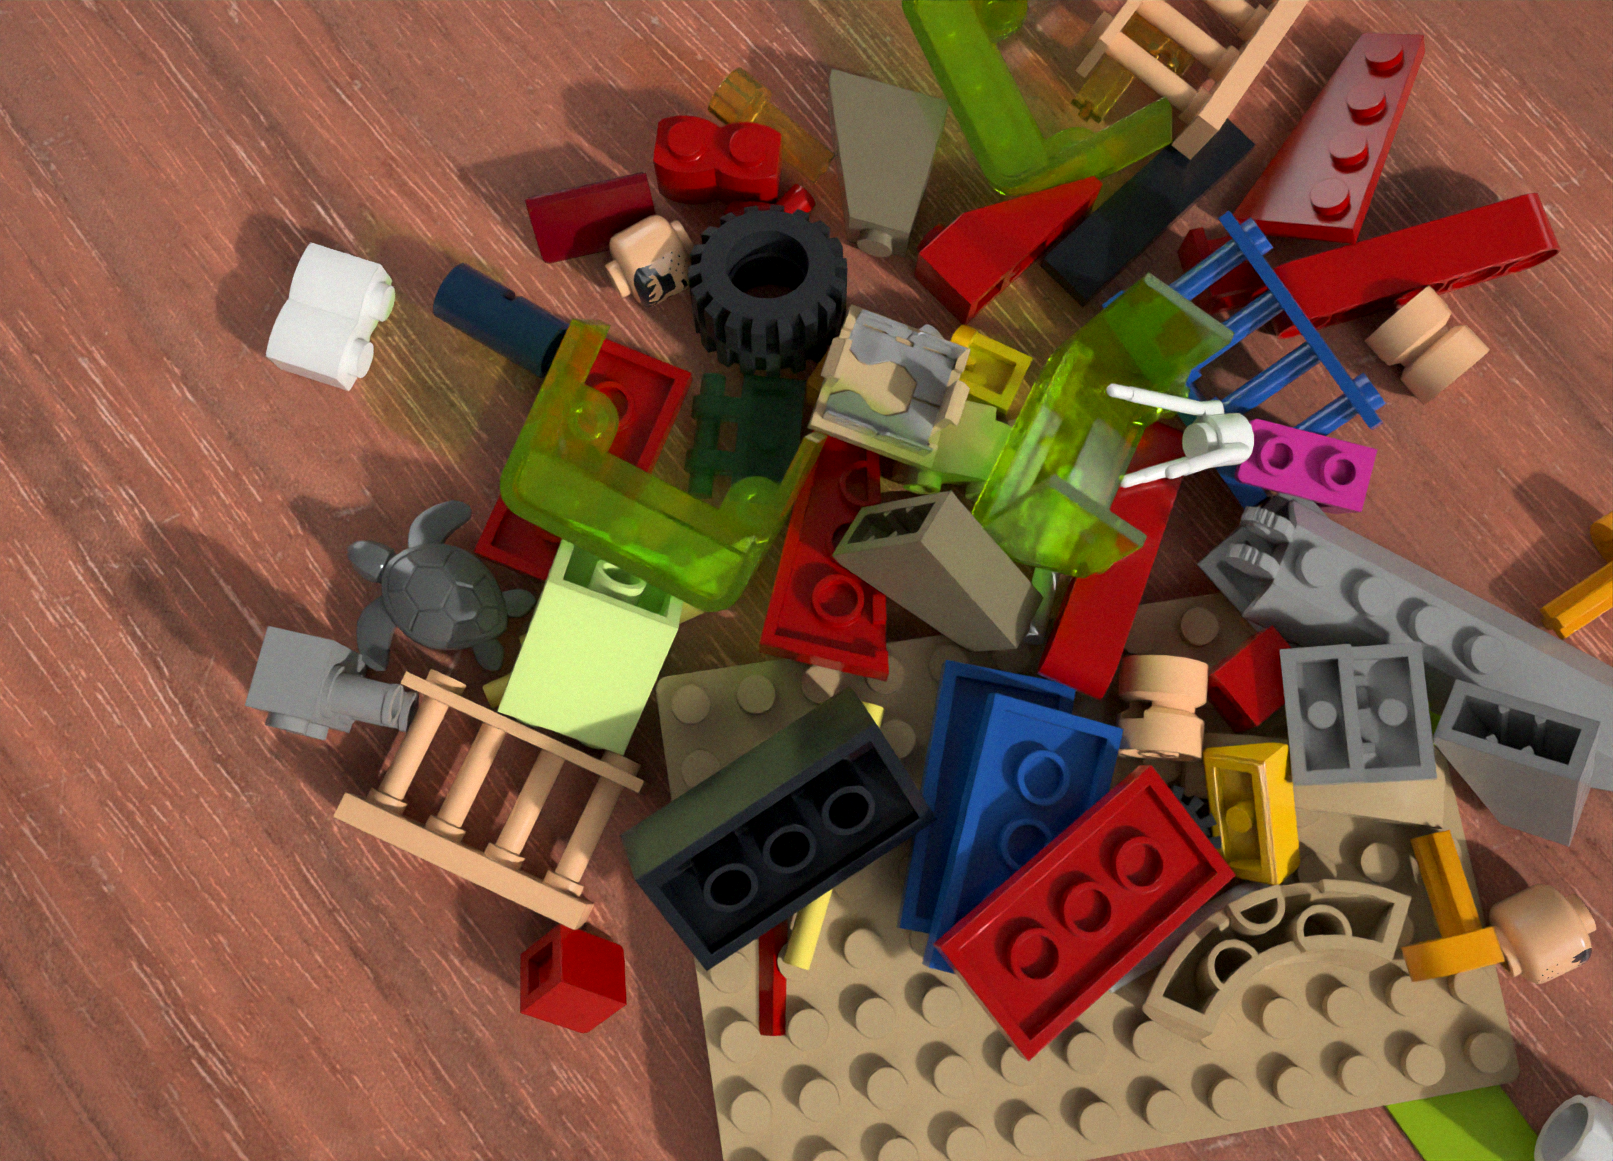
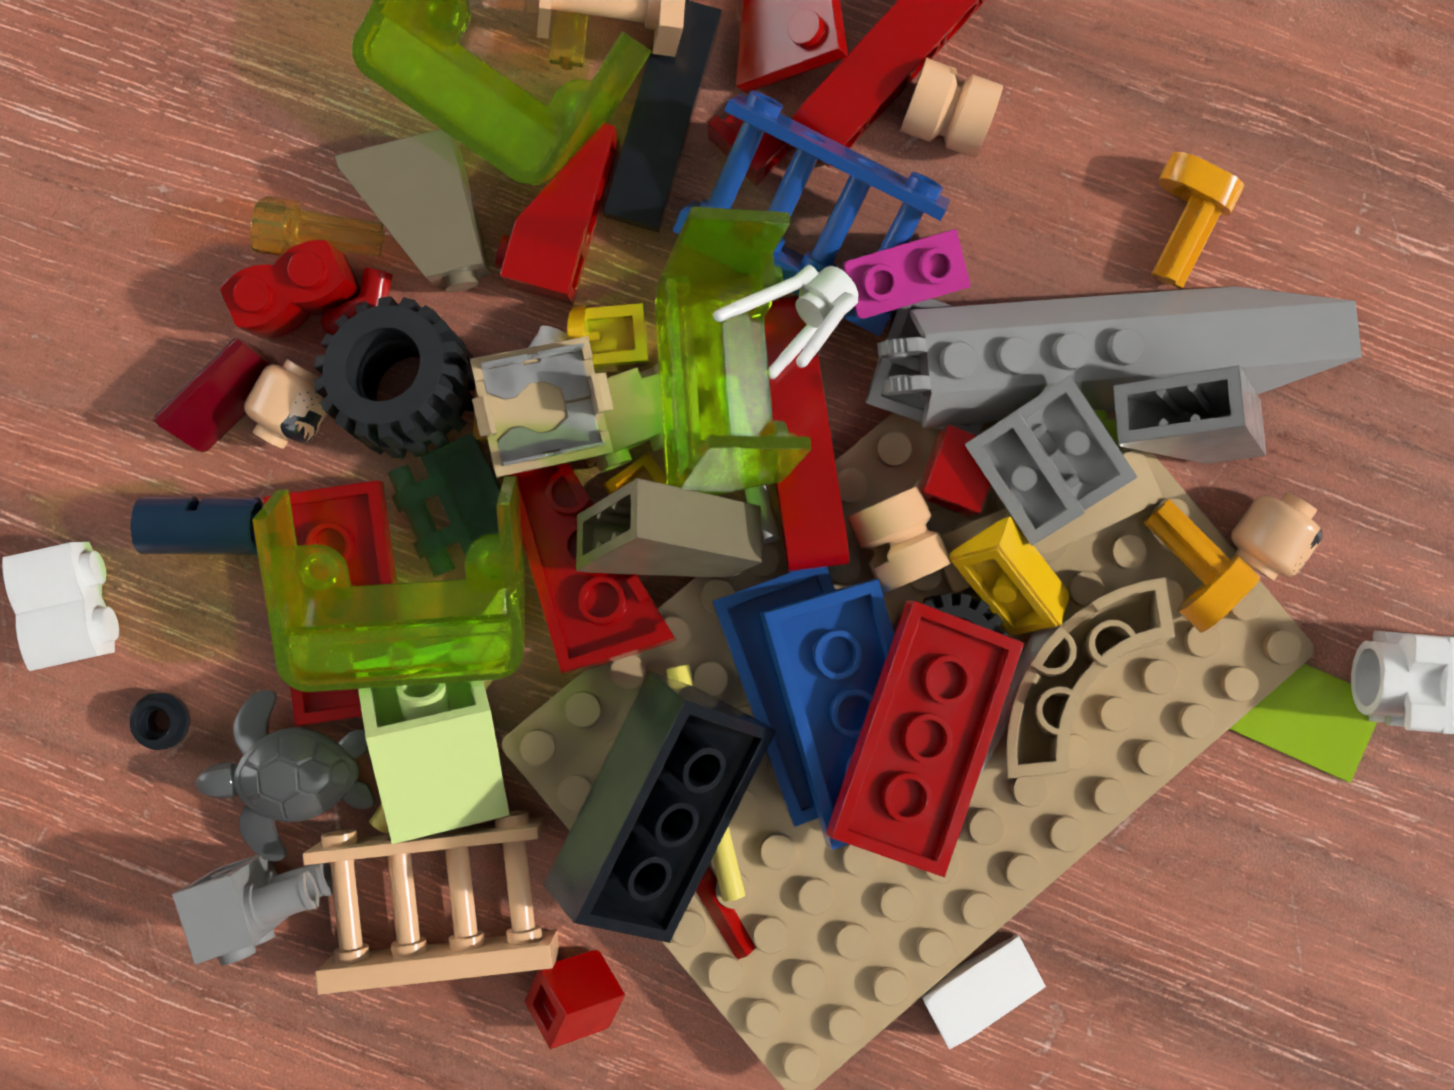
camera: 30 degrees left, 10 degrees up
(337, 463) = (144, 726): none -> black plate

